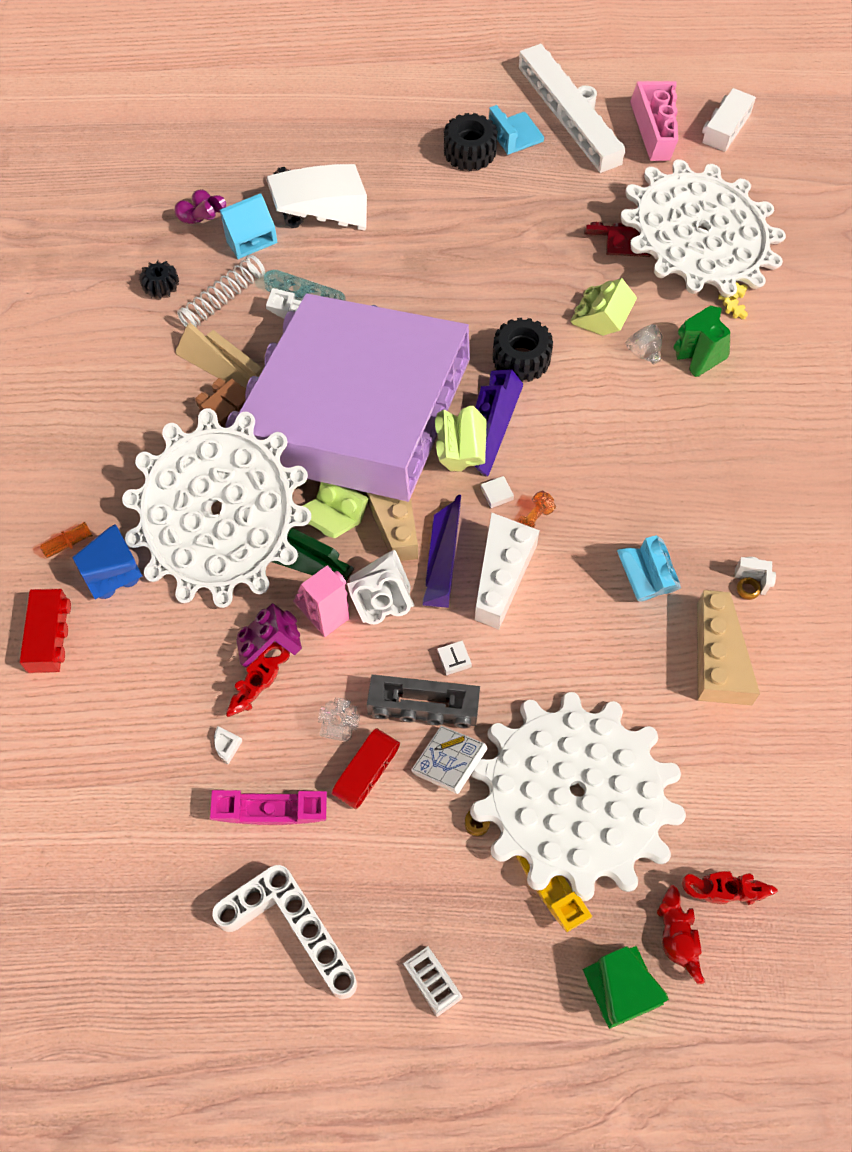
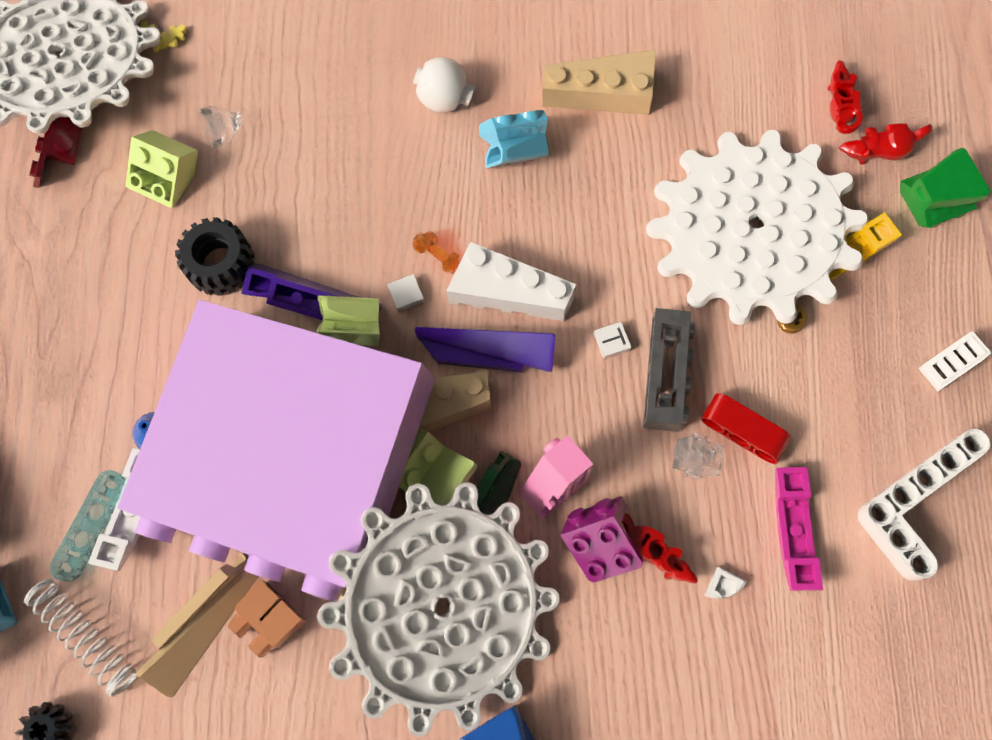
camera: 85 degrees left, 10 degrees up
(381, 589) = (539, 413): white piece -> none
(449, 759) = (733, 343): white tile -> none
(703, 511) = (442, 85): none -> white brick
(704, 340) = (224, 63): green piece -> none
(748, 580) = (526, 64): pearl gold piece -> none
(757, 569) = (514, 38): white bracket -> none

